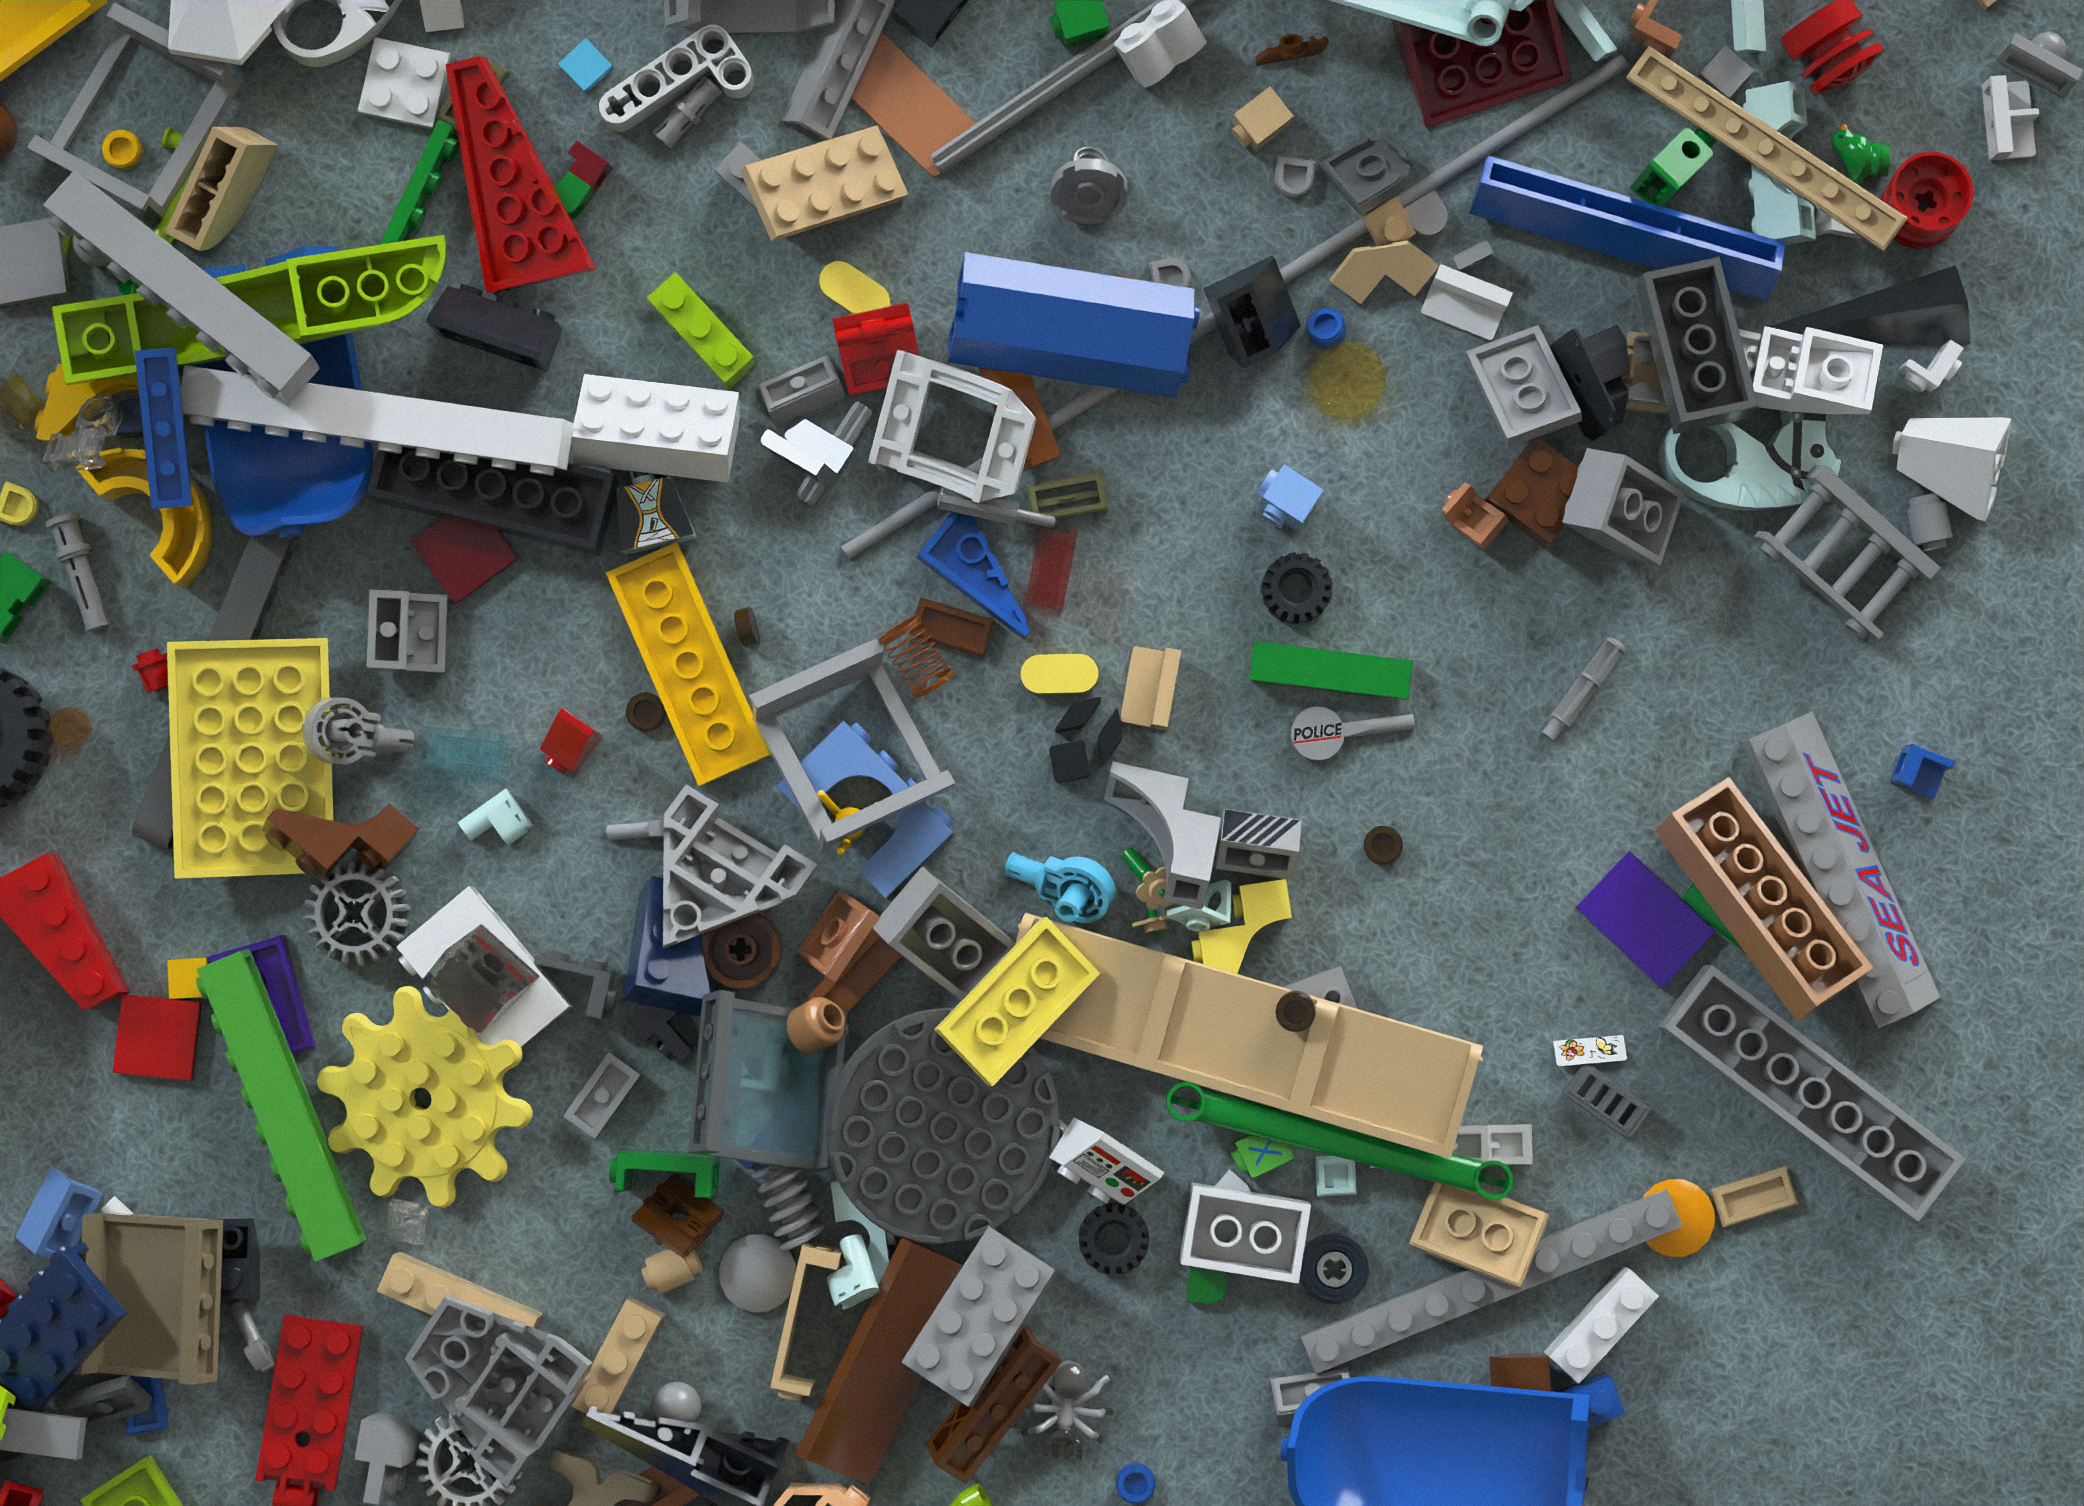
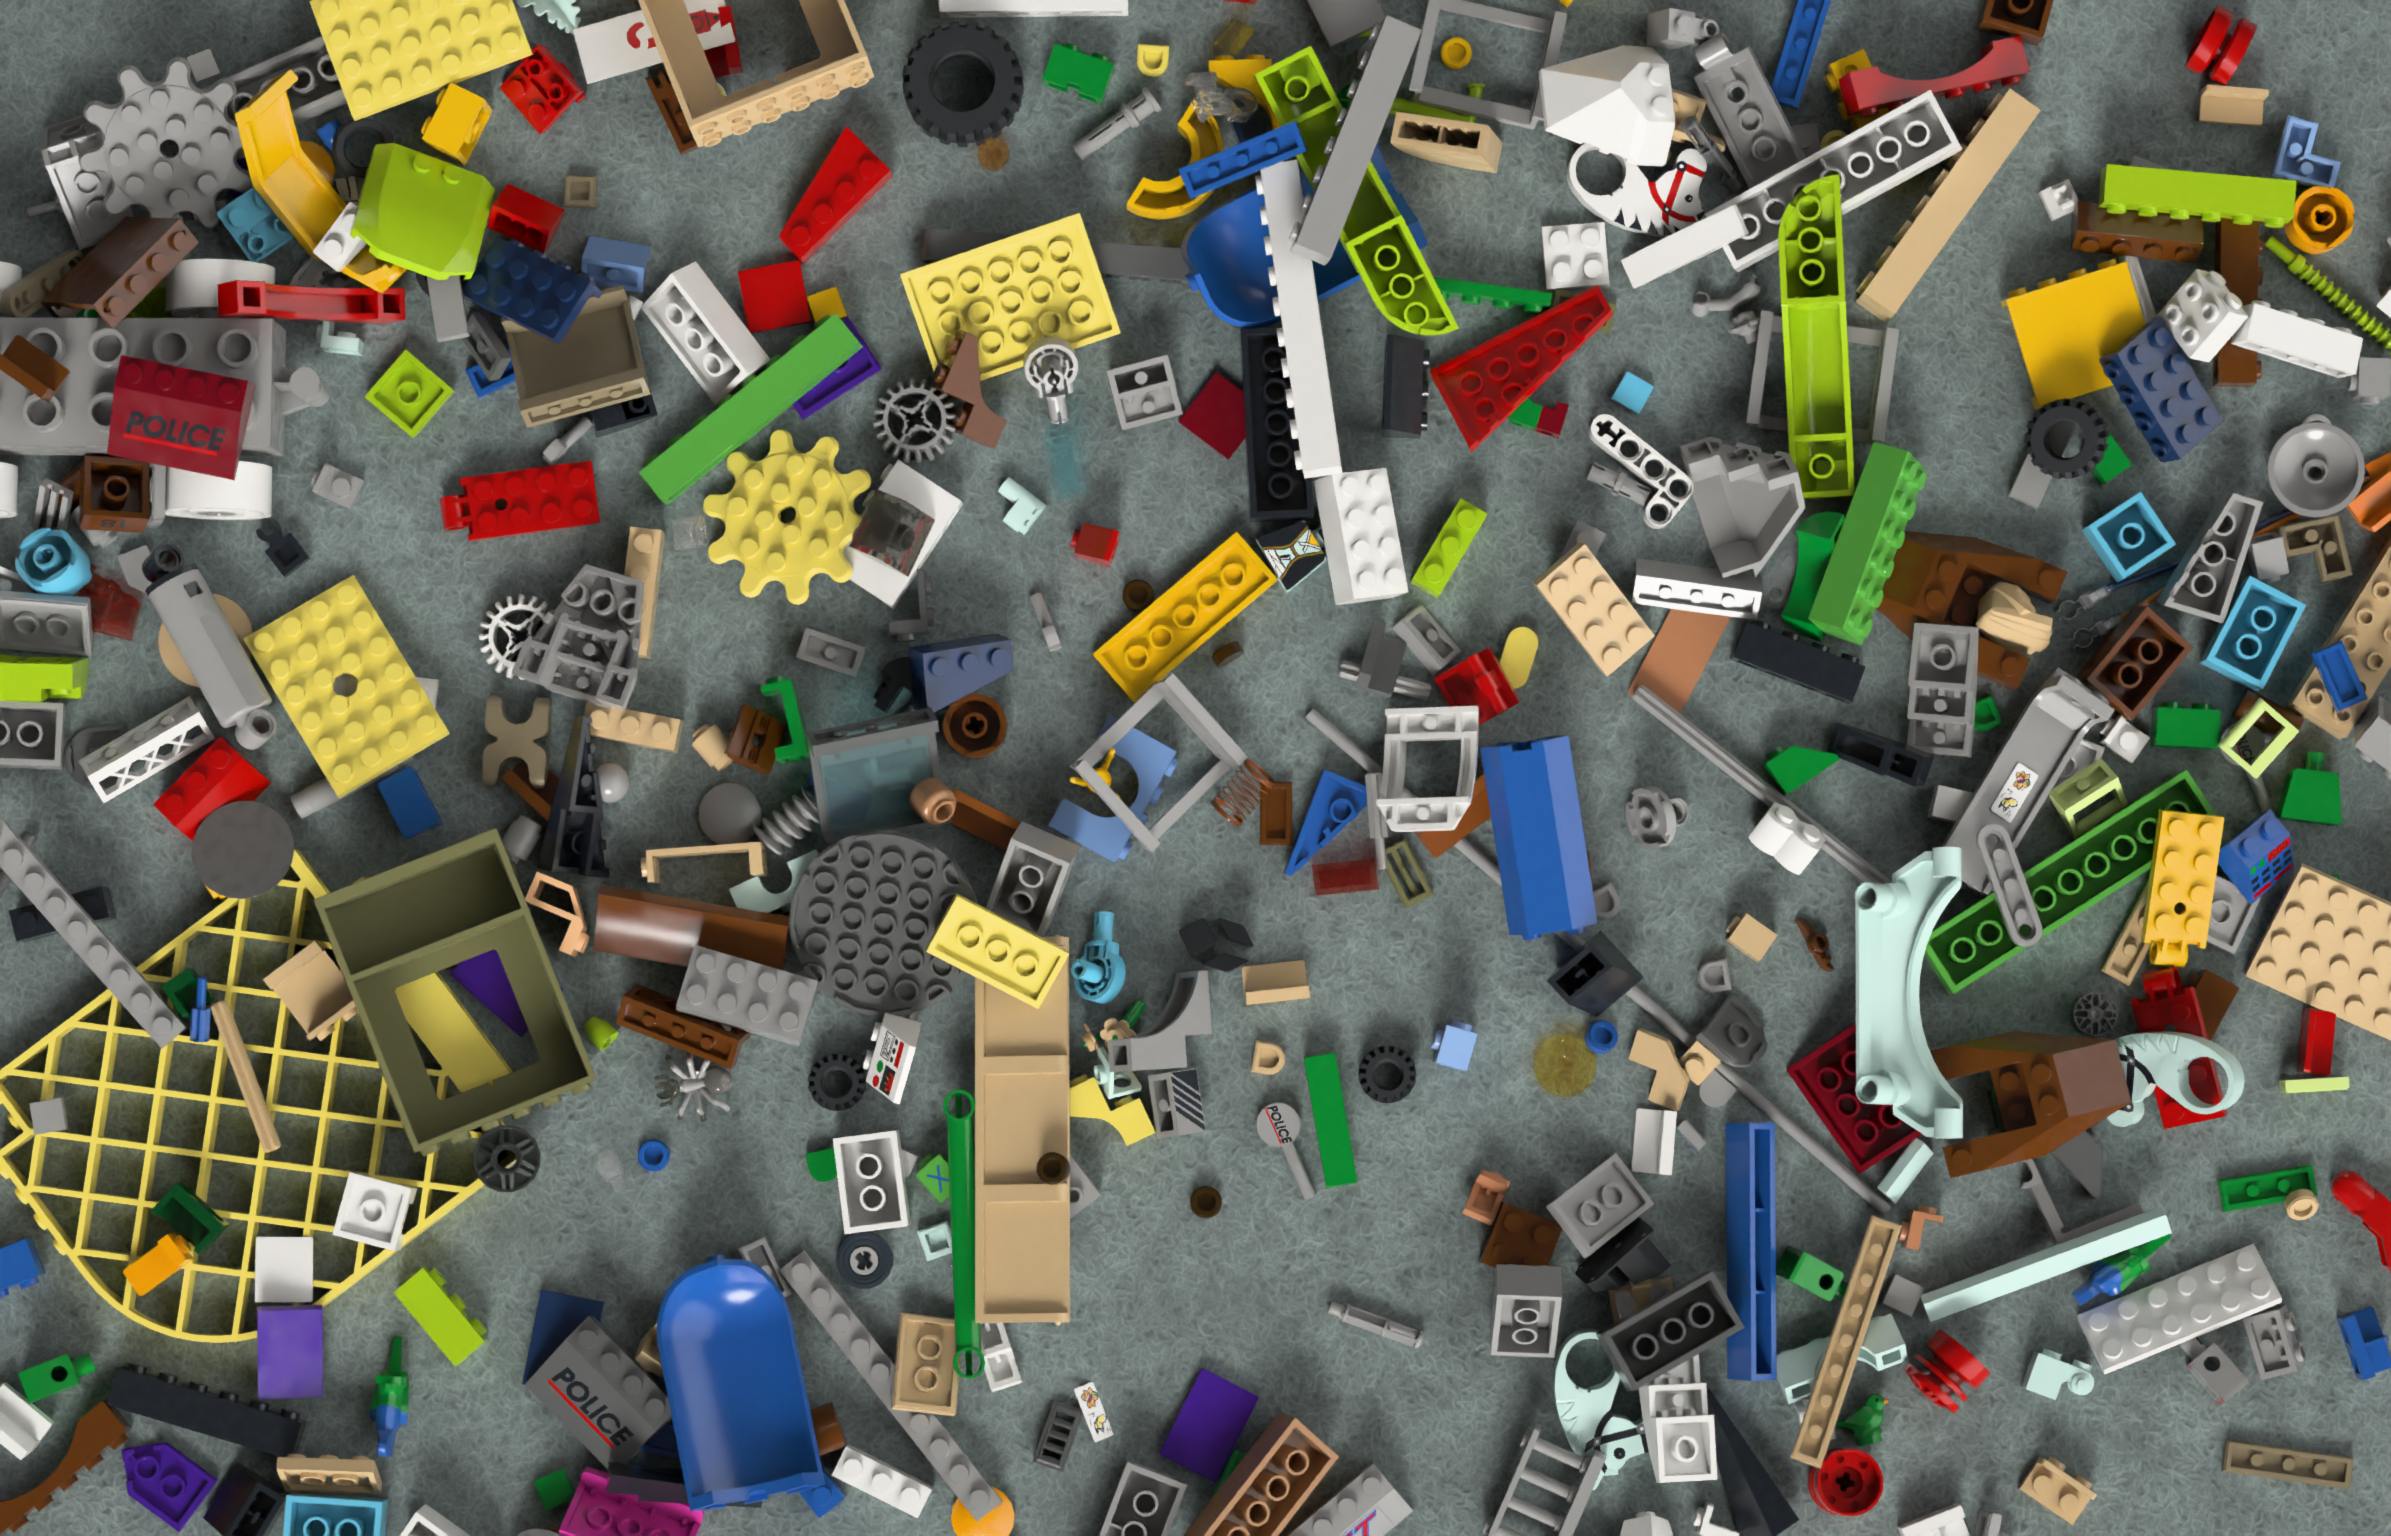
camera: 70 degrees right, 0 degrees up
(153, 670) = (1056, 206): red hose -> none
(172, 1133) = (705, 332): none -> white slope
(388, 1446) = (515, 572): light grey brick -> none
(718, 871) = (1030, 691): light grey wedge -> none
(837, 935) = (1008, 797): nougat tile -> none
(855, 1280) = (746, 891): light aqua piece -> none
(1059, 674) = (1264, 909): light yellow tile -> none
(1236, 722) = (1267, 1058): none -> tan tile

